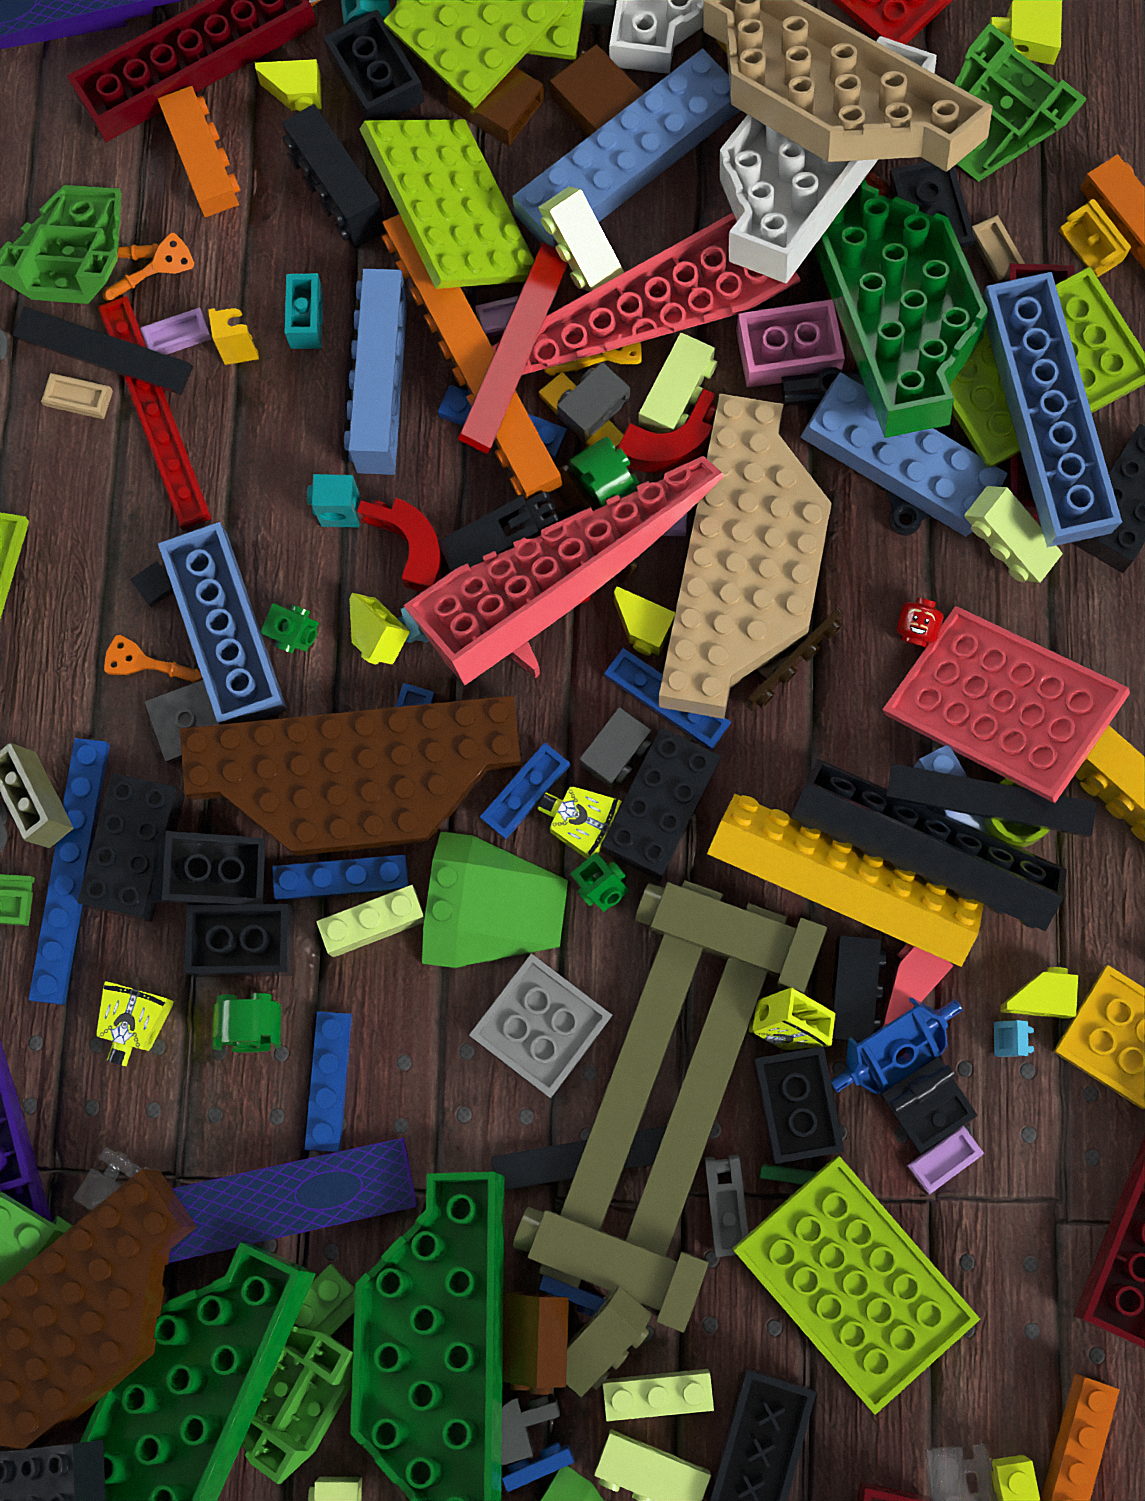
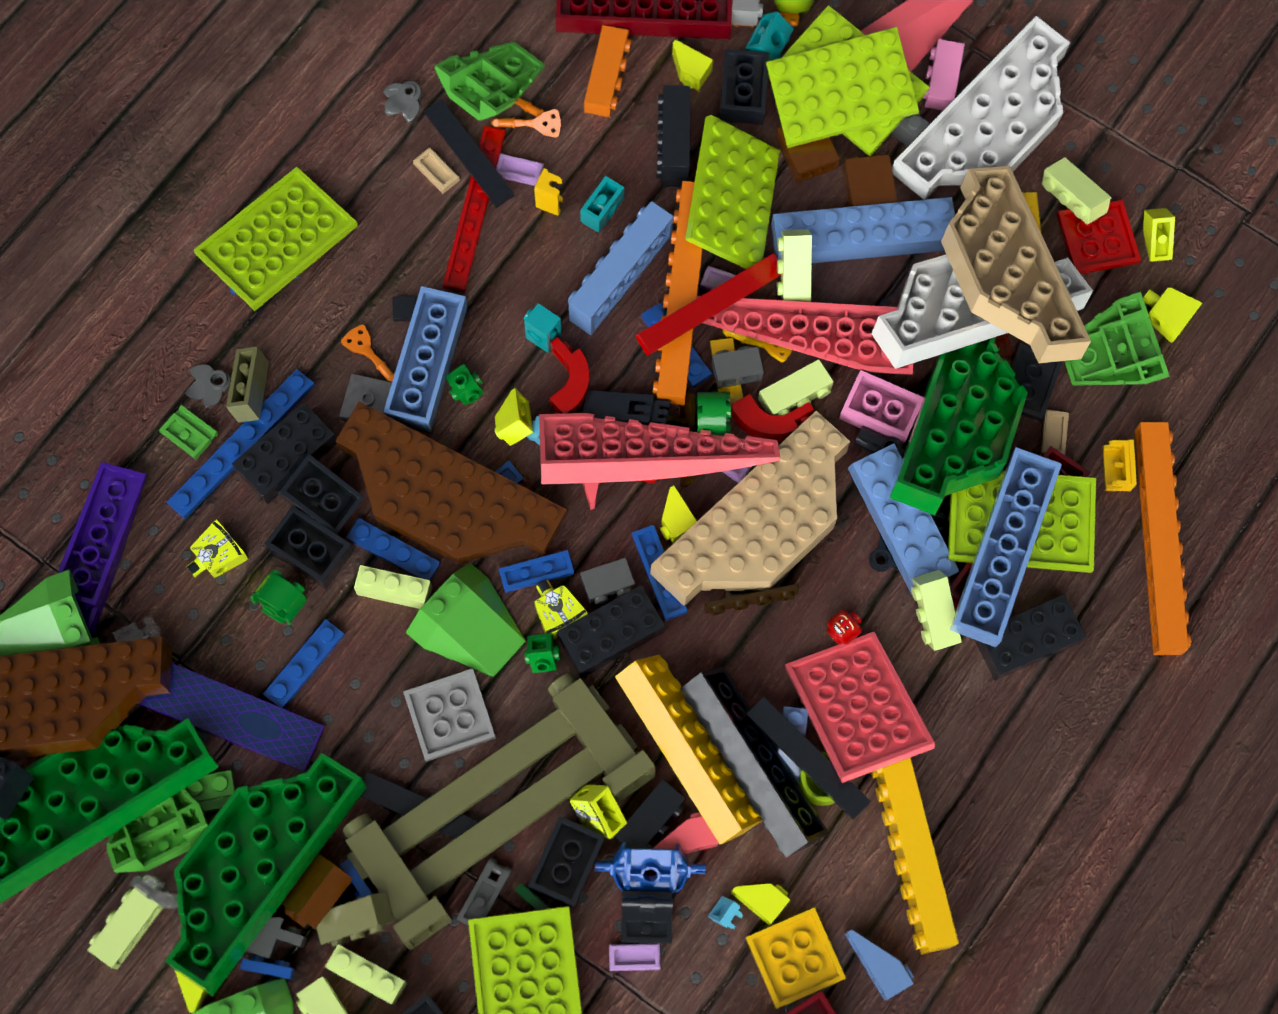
camera: 25 degrees right, 5 degrees down
(339, 1471) = (154, 889): none -> clear plate

